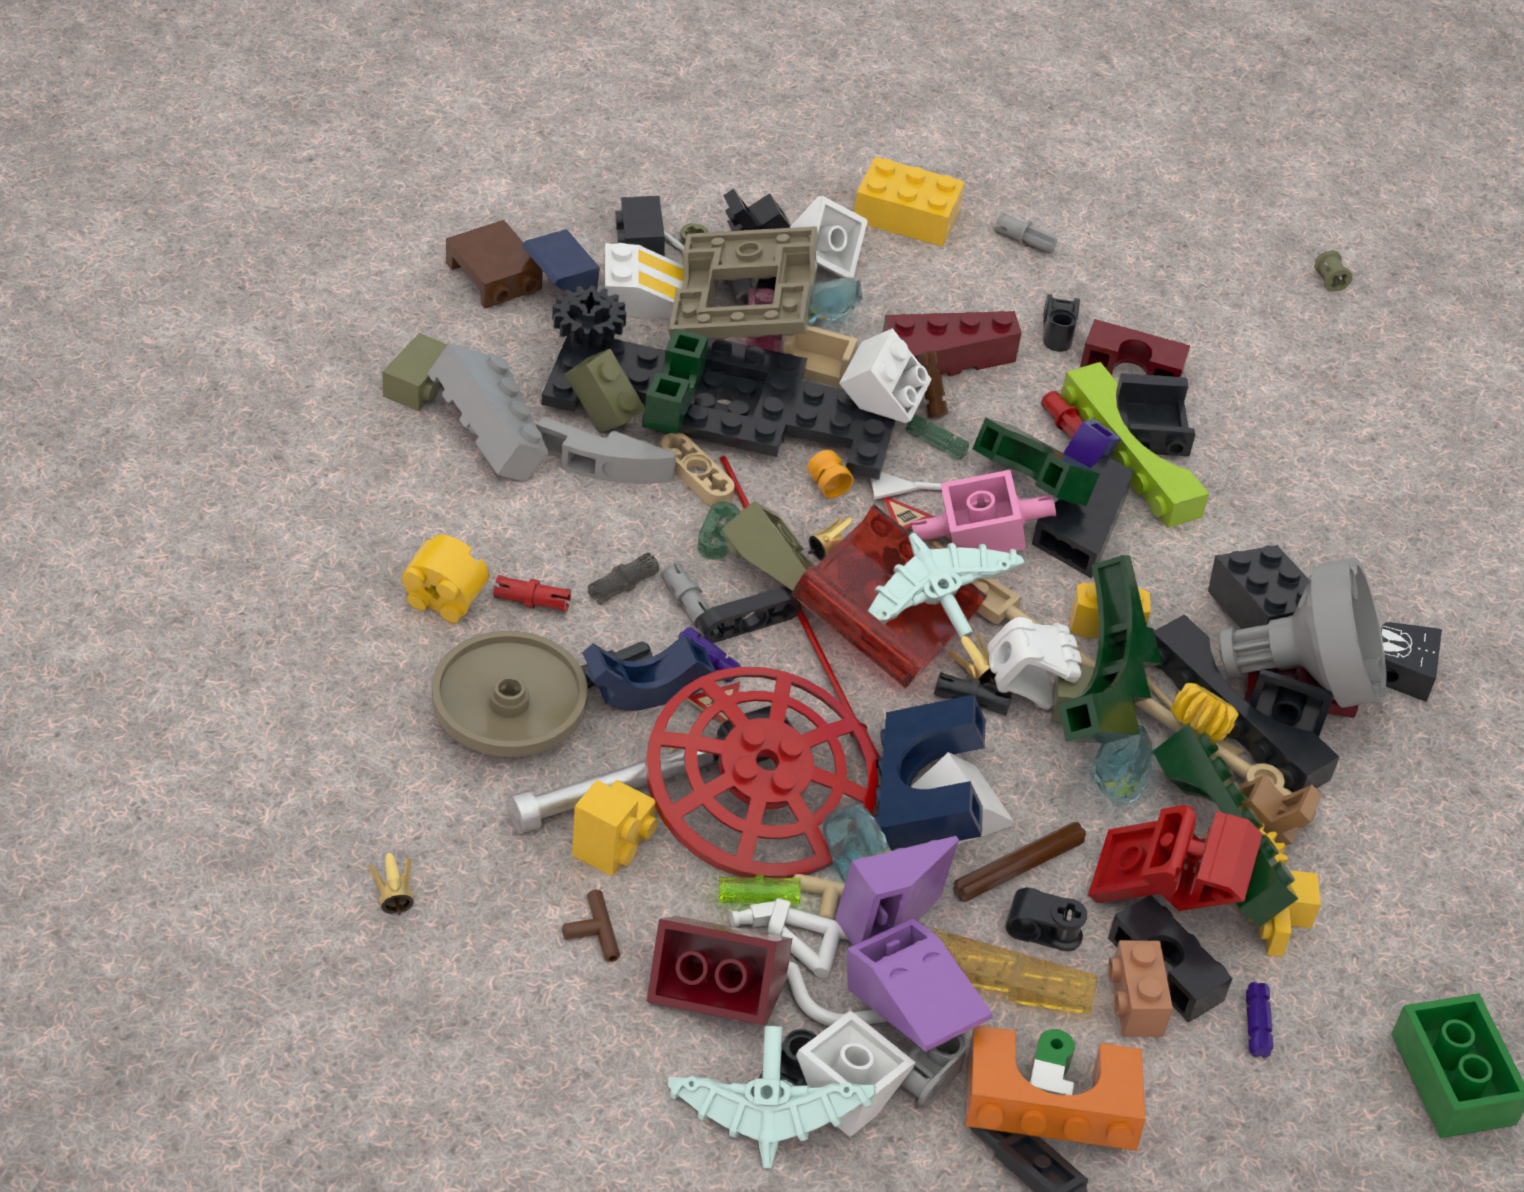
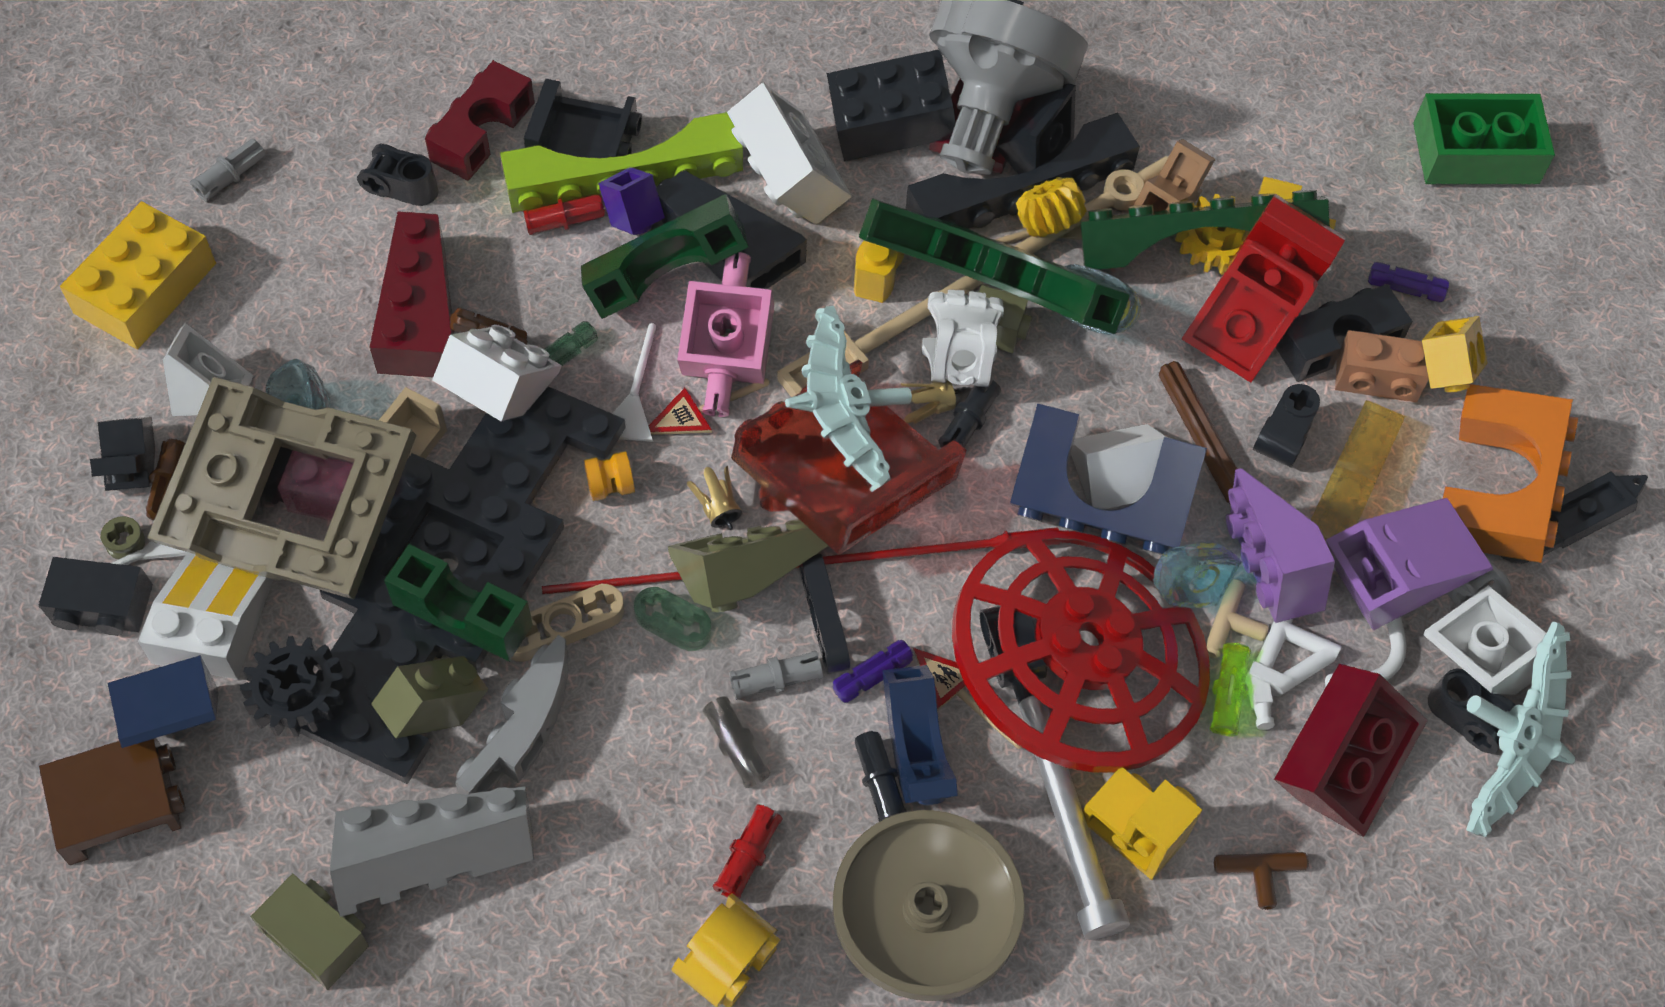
camera: 75 degrees left, 15 degrees up
(1052, 1062) = (1461, 468): leg -> none
(1172, 1026) = (1454, 353): none -> yellow brick
(1178, 530) = (788, 155): none -> white brick

